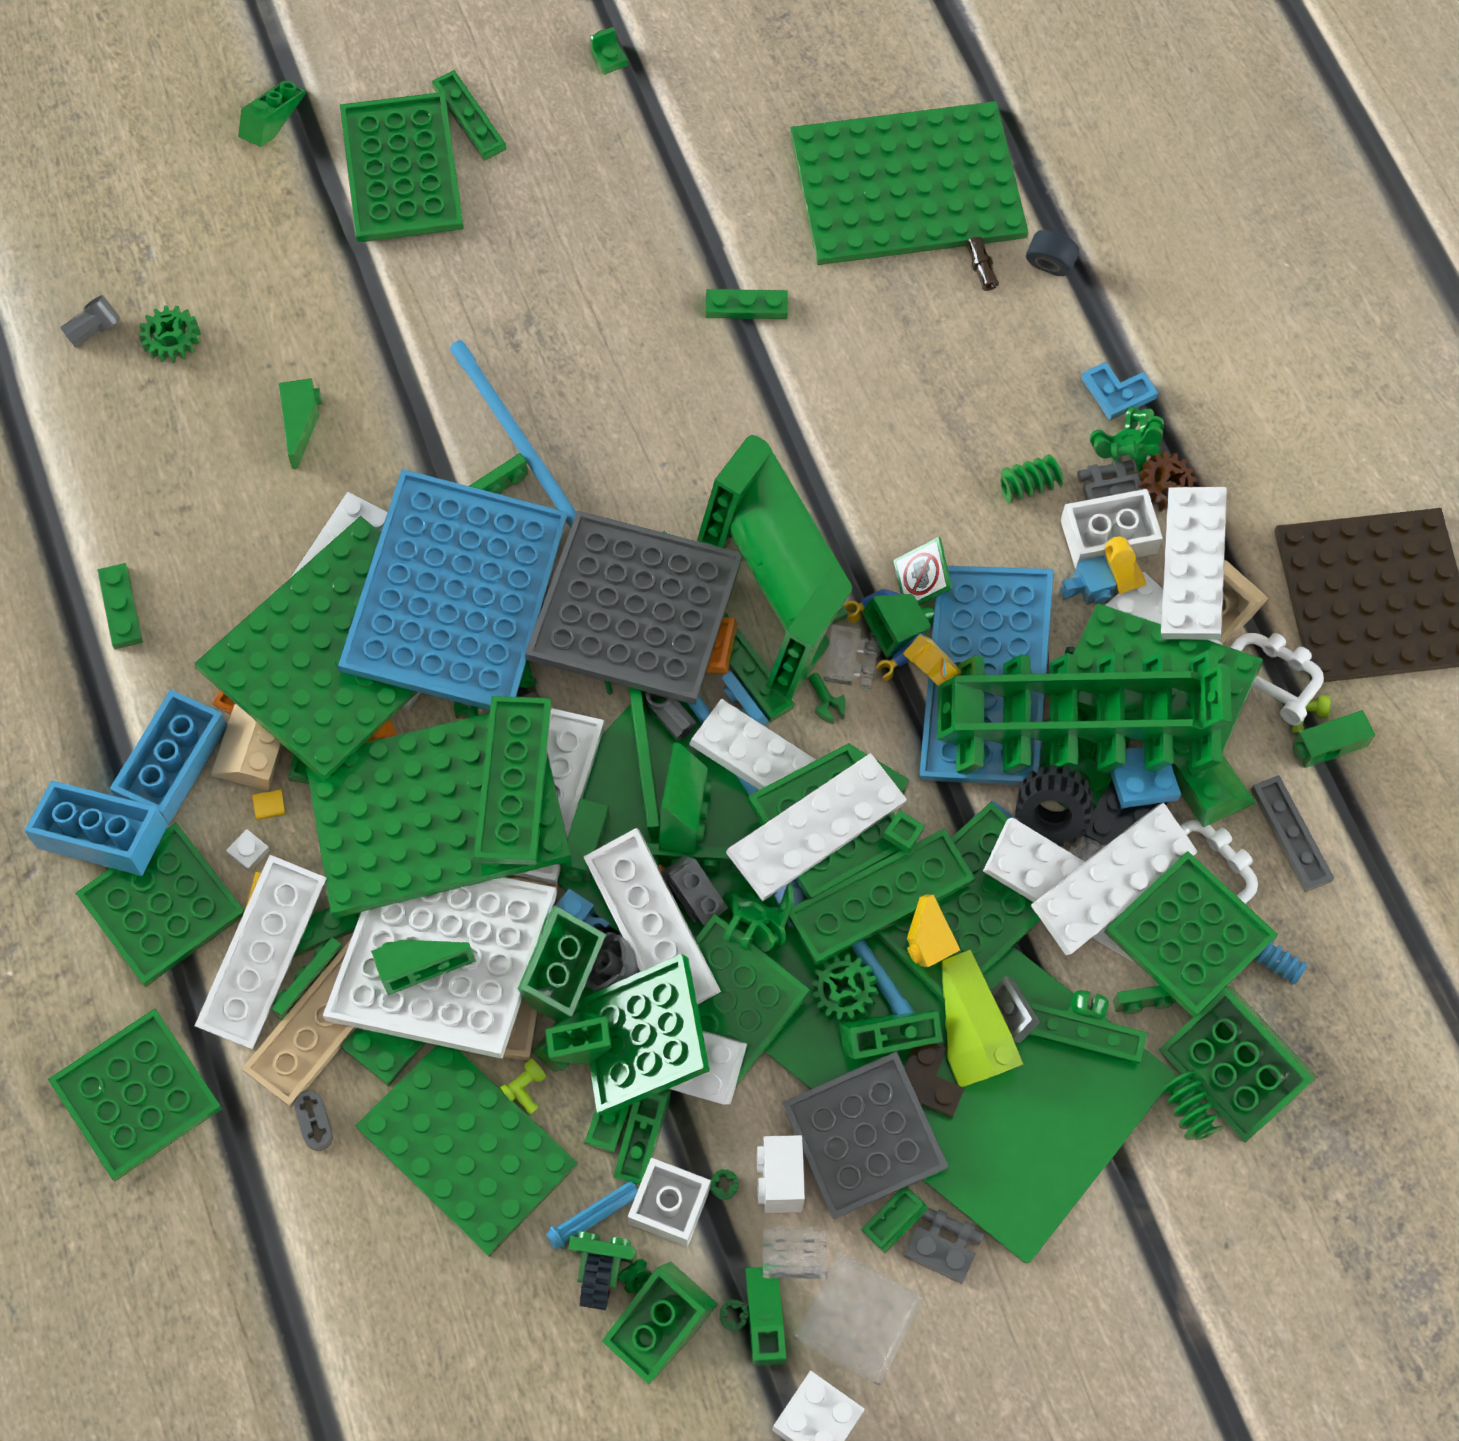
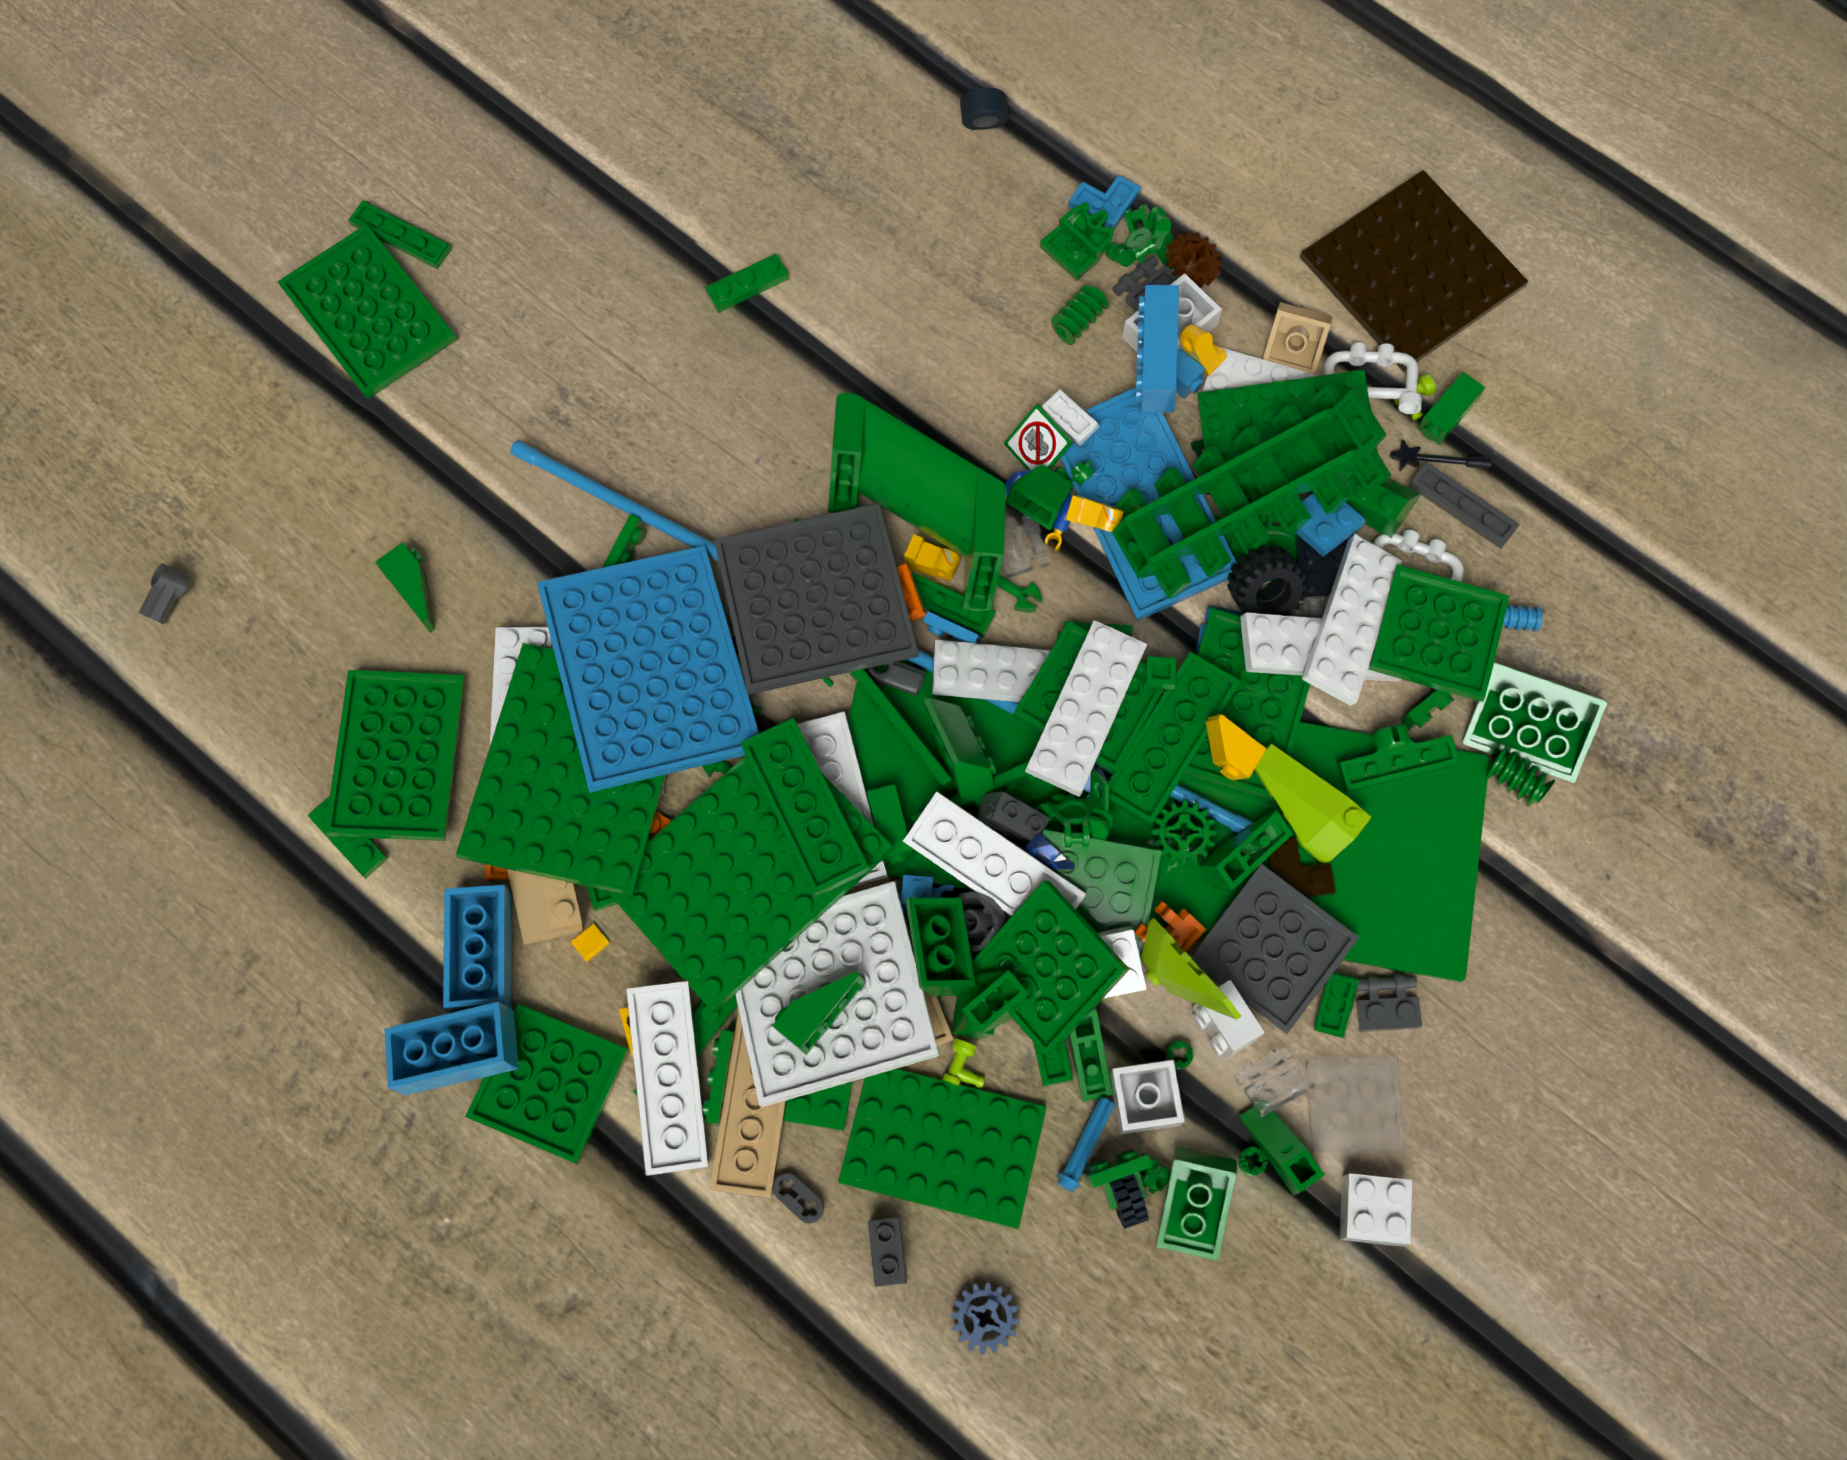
camera: 25 degrees left, 5 degrees up
(134, 1094) = (626, 1265): green plate -> none
(169, 334) = (245, 568): green gear -> none
(199, 557) = (395, 756): none -> green plate
(248, 850) = (596, 993): white plate -> none
(268, 113) = (215, 320): green slope -> none
(360, 1209) = (887, 1252): none -> dark grey hinge
(422, 1306) = (991, 1305): none -> sand blue gear
(607, 51) = (491, 117): green bracket -> none
(705, 937) = (1047, 854): none -> dark blue sticker
(760, 1102) = (1179, 973): none -> lime wedge
(762, 626) = (931, 559): none -> yellow leg
(777, 1078) = (1181, 927): none -> orange plate
(907, 182) = (822, 108): green plate -> none
(944, 620) = (1082, 472): none -> green plate
(963, 565) = (1070, 417): none -> white plate
(982, 263) = (928, 148): dark brown pin -> none
(1015, 1009) = (1336, 773): dark grey plate -> none
(1070, 412) = (1078, 240): none -> green plate
(1075, 542) = (1157, 348): none -> dark azure brick
(1194, 563) = (1261, 317): white plate -> none
(1270, 763) = (1410, 456): none -> black piece

